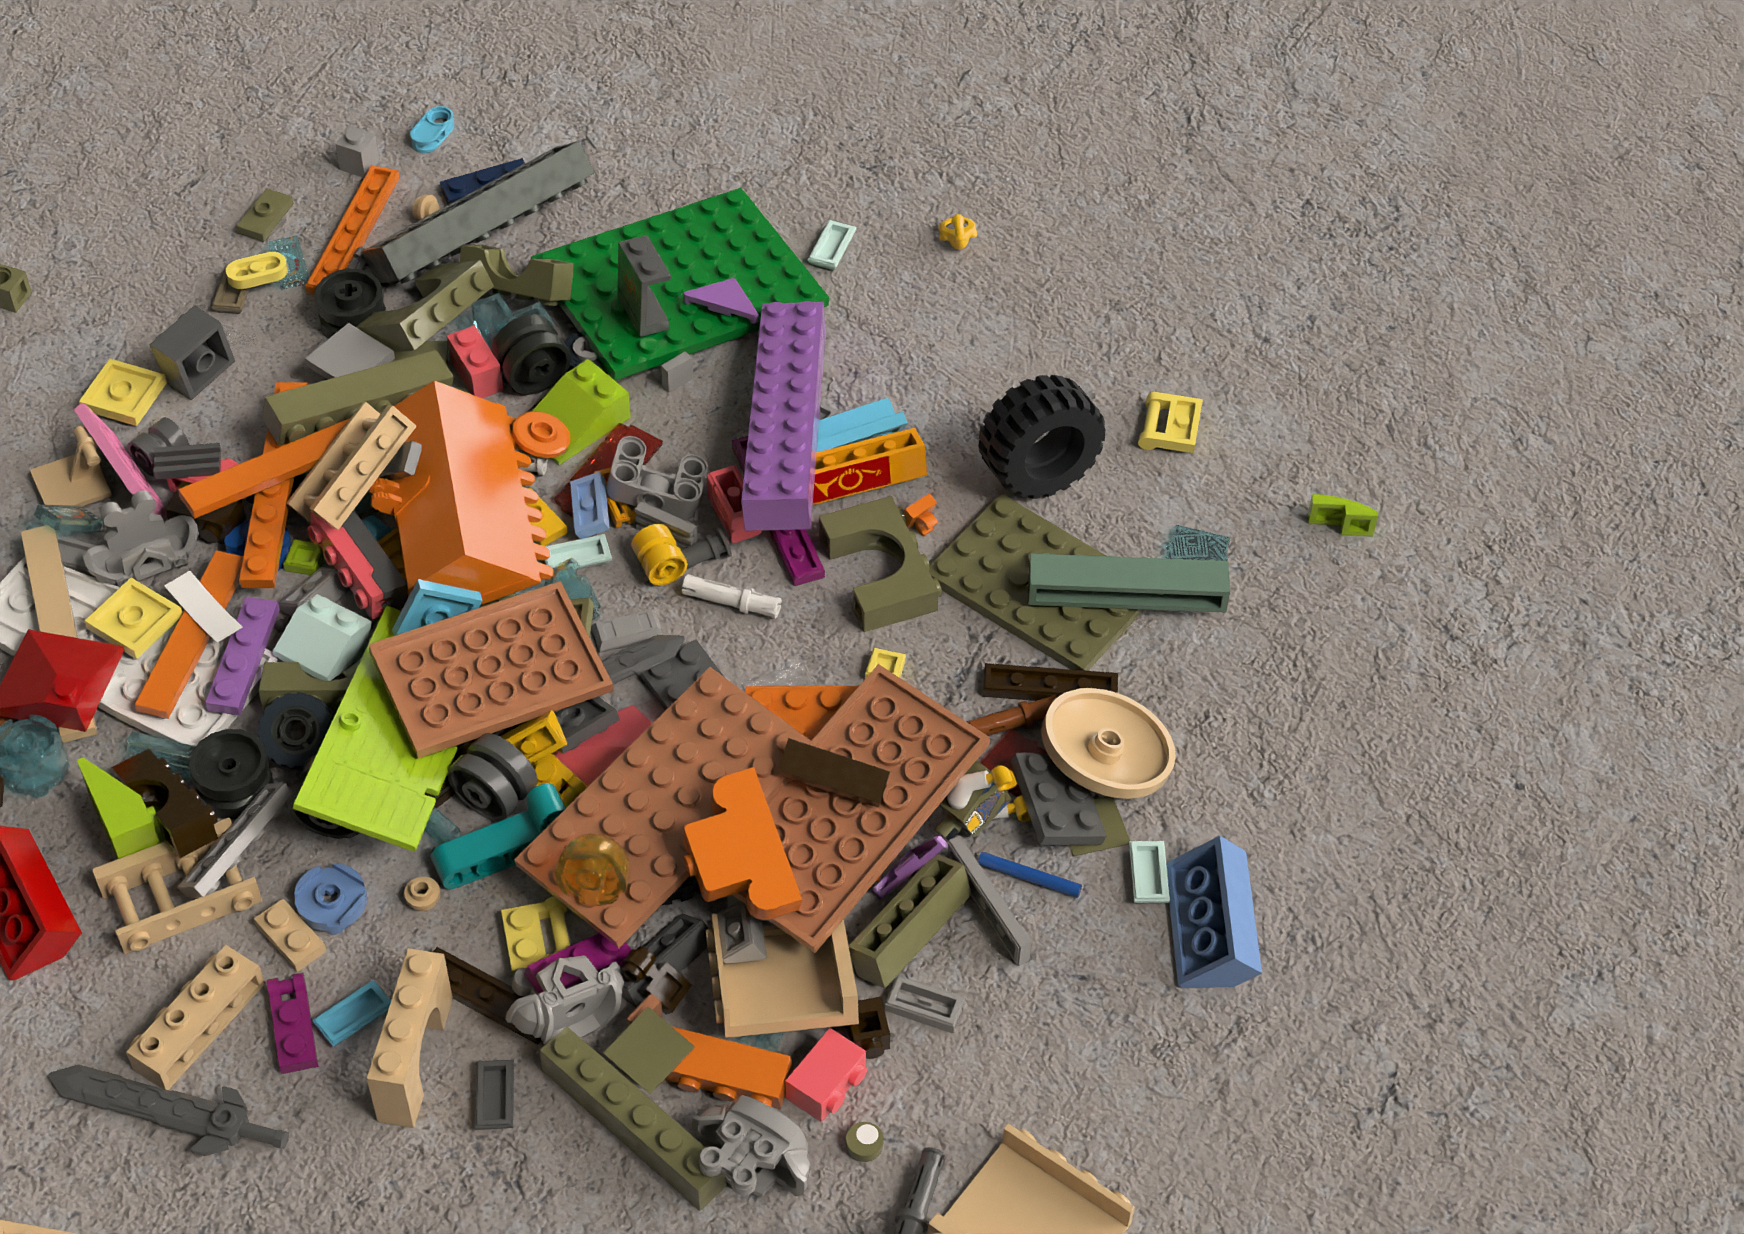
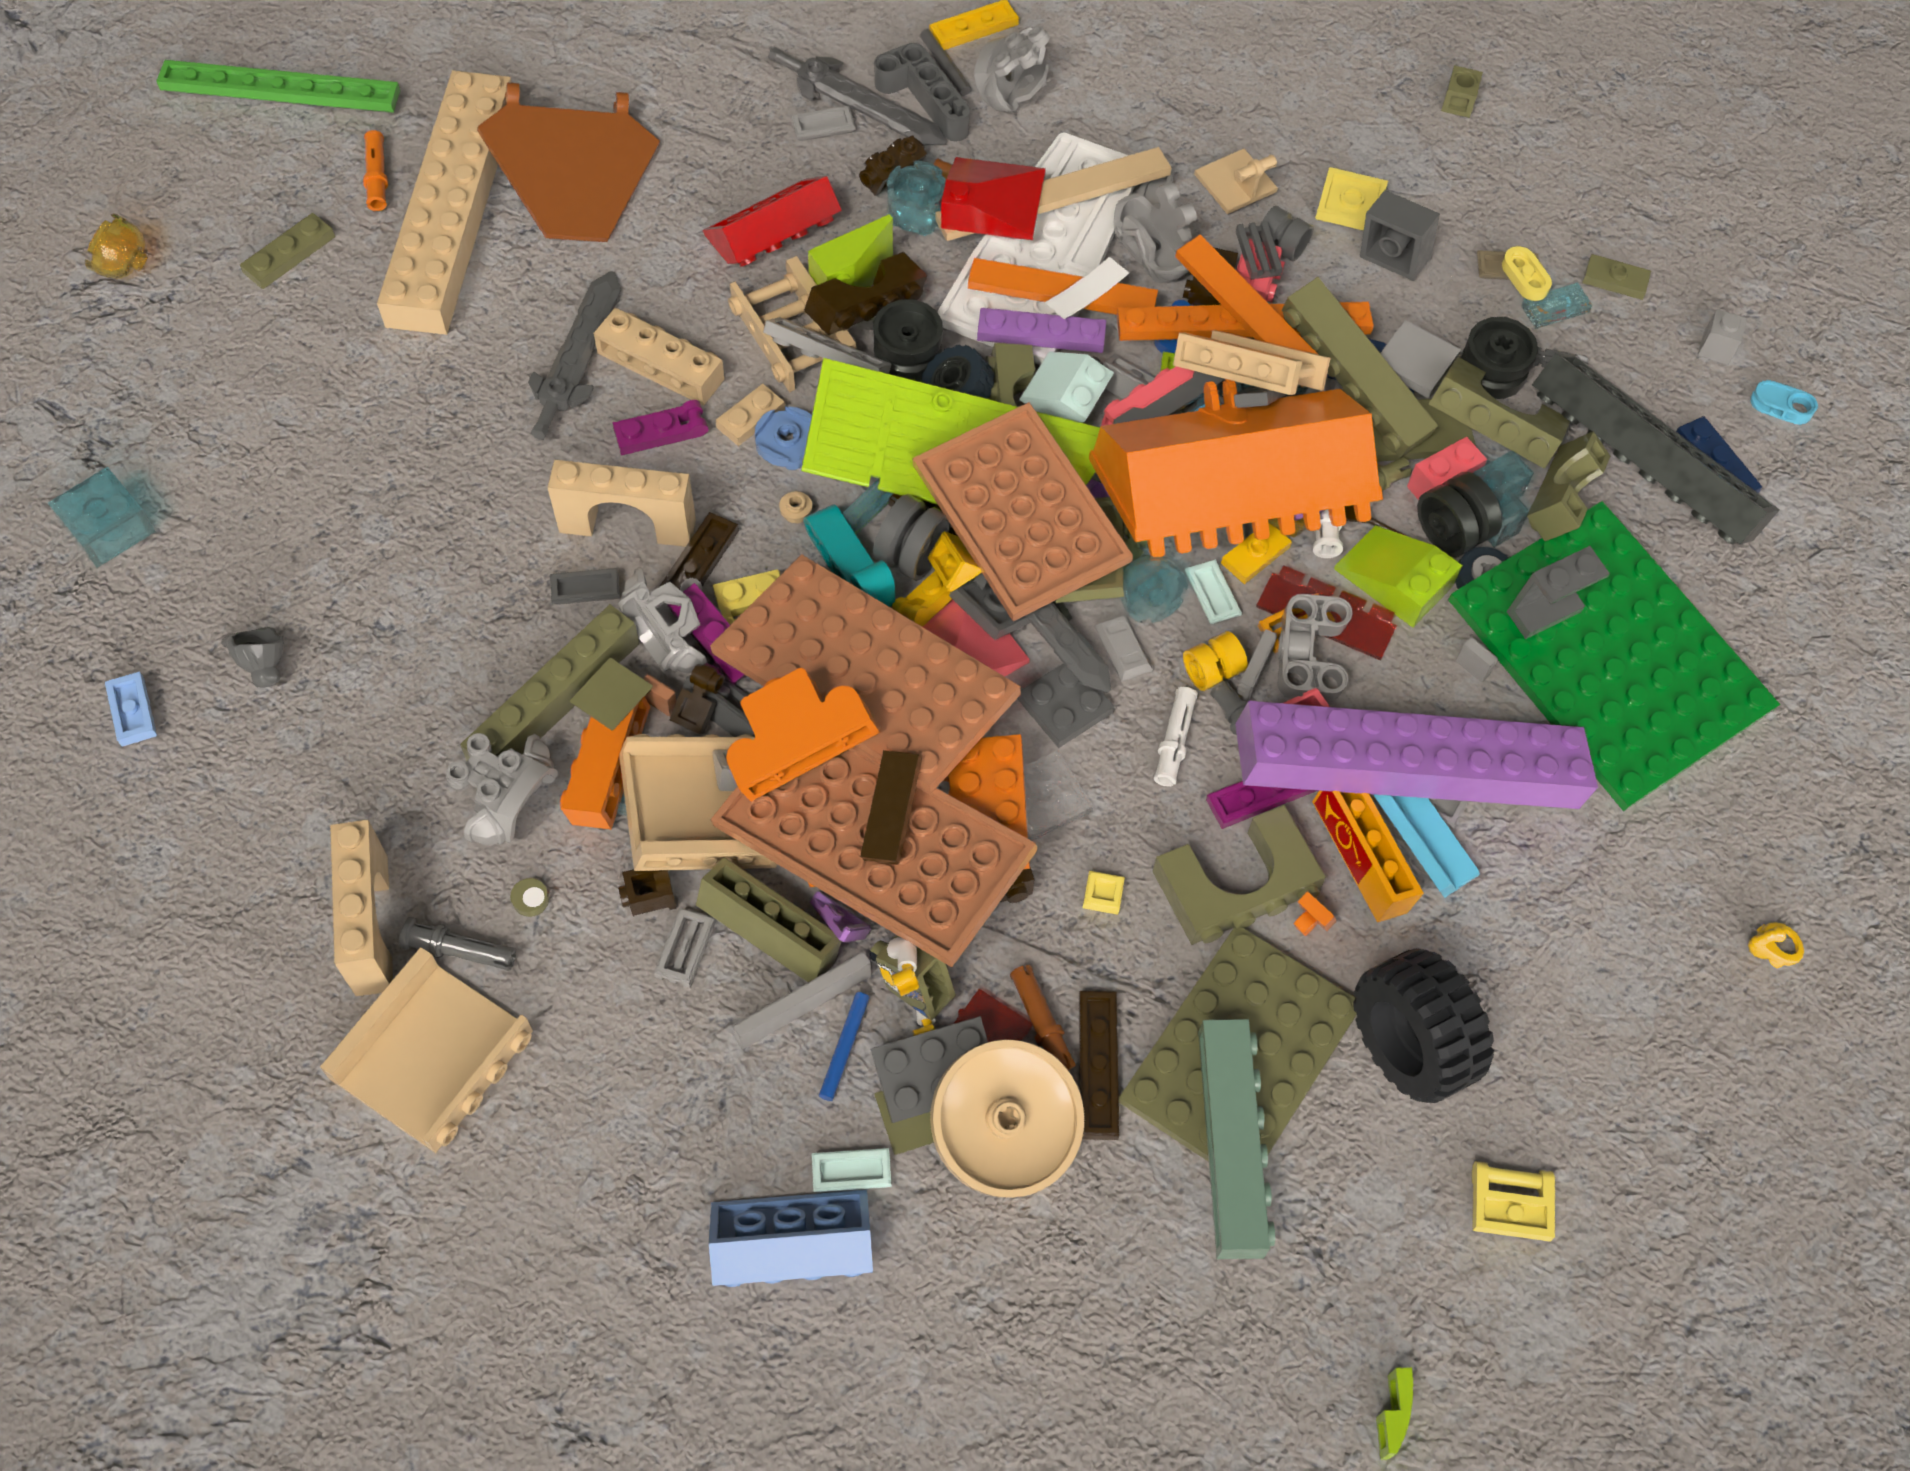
camera: 85 degrees right, 10 degrees up
(68, 518) = (1179, 170): clear light blue tile -> none
(117, 455) = (1251, 199): bright pink tile -> none
(133, 617) = (1070, 241): light yellow plate -> none
(165, 749) = (933, 282): clear light blue tile -> none
(352, 1013) = (661, 458): medium azure tile -> none
(355, 223) = (1626, 353): orange tile -> none
(425, 206) = (1661, 406): tan plate -> none
(432, 603) = (1086, 453): medium azure plate -> none
(541, 434) = (1351, 535): orange wheel -> none
(589, 505) = (1267, 591): light blue plate -> none
(593, 869) = (770, 604): clear yellow cylinder -> none
(723, 298) = (1583, 688): medium lavender tile -> none
(826, 1075) = (593, 855): coral brick -> none
(831, 245) = (1717, 806): light aqua tile -> none
(1197, 545) = (1316, 1233): clear light blue piece -> none

